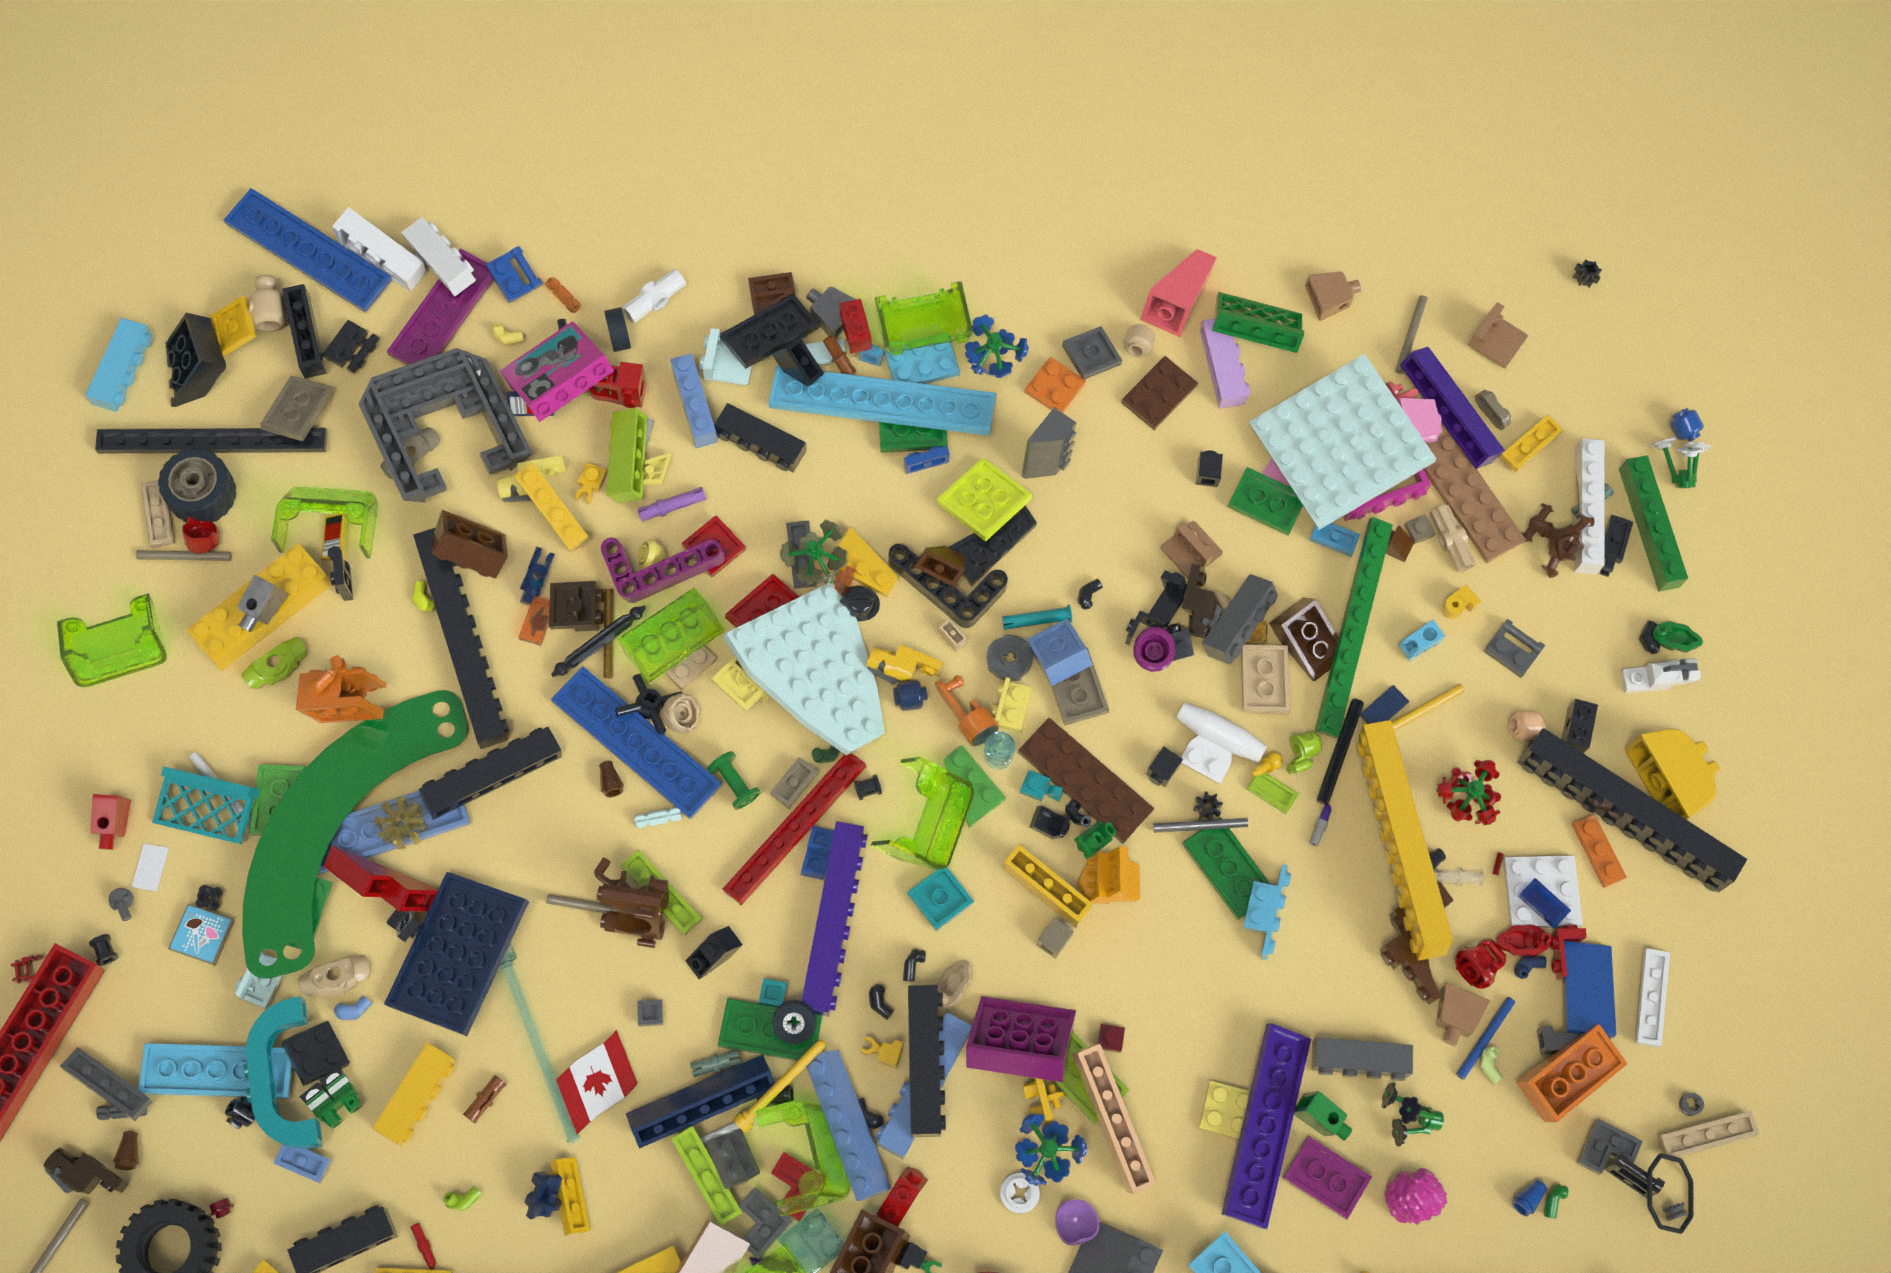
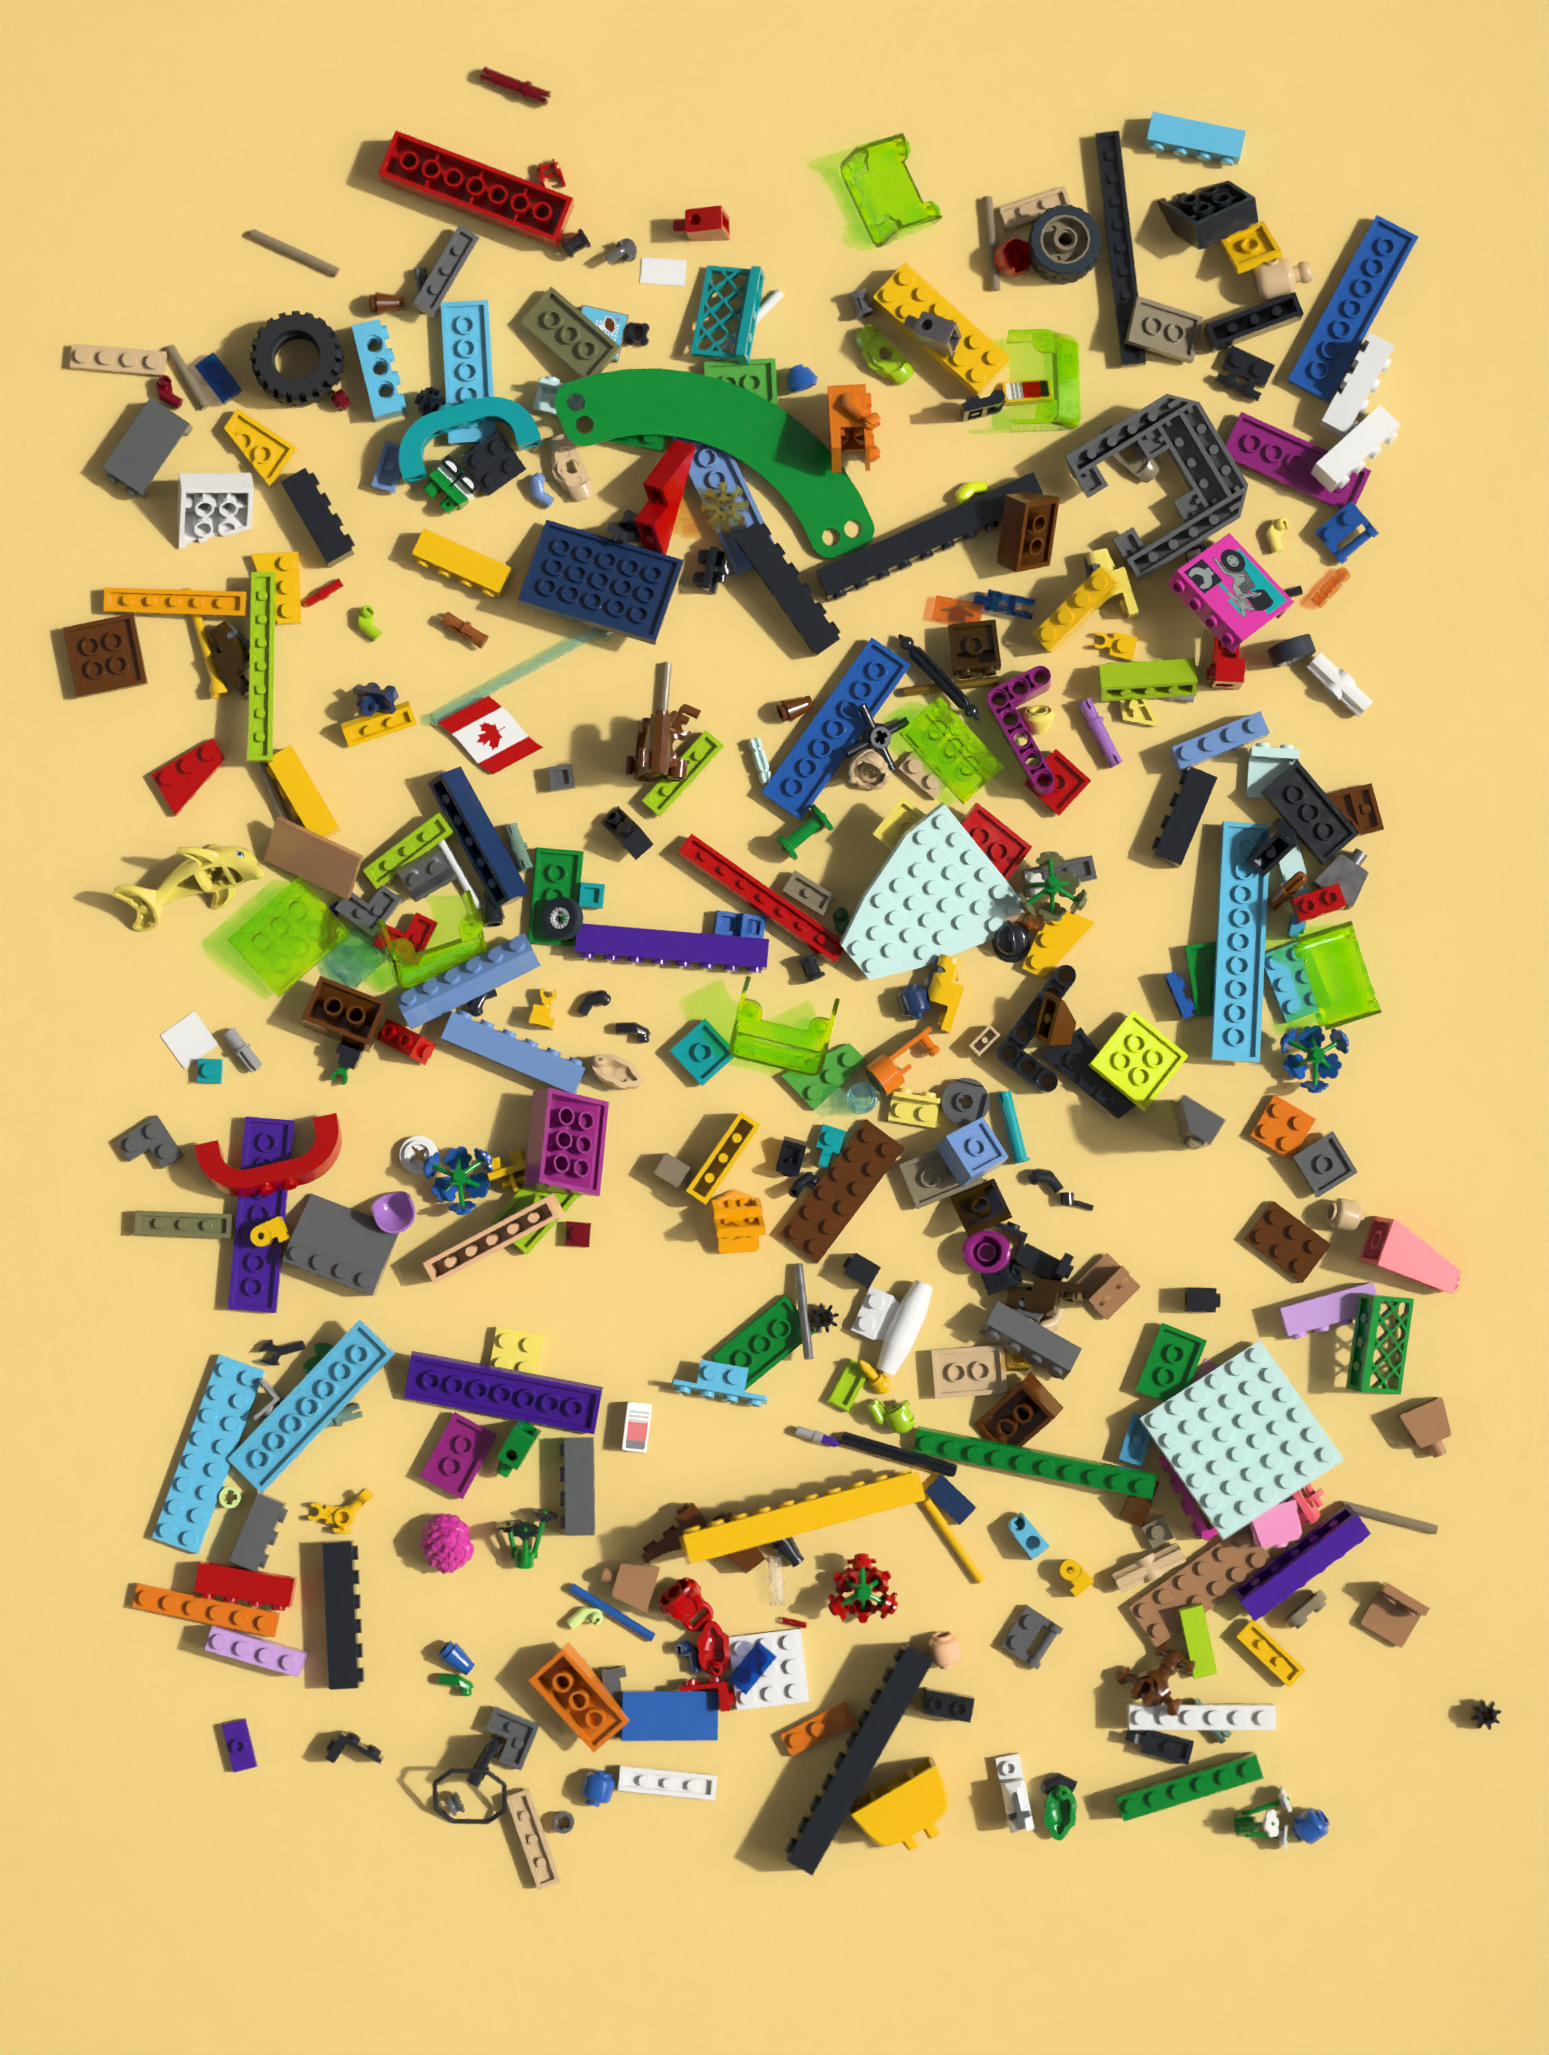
camera: 90 degrees right, 15 degrees up
(81, 1173) = (360, 265): dark brown plate -> none
(196, 962) = (570, 334): none -> olive plate
(211, 676) = (861, 303): none -> dark grey bush
(237, 1164) = (364, 335): none -> medium azure brick
(283, 742) = (800, 379): none -> blue cone
(470, 849) = (715, 570): none -> black hips
(746, 1119) = (463, 882): yellow piece -> none
(924, 1062) = (532, 1048): black brick -> none
(1095, 838) = (777, 1202): green hips -> none
(1108, 575) = (1067, 1199): none -> black hand
(1112, 650) = (981, 1207): none -> dark brown plate
(1305, 997) = (637, 1427): none -> slope
(1519, 501) = (1197, 1640): none -> lime tile
(1658, 1066) = (597, 1787): none -> blue head

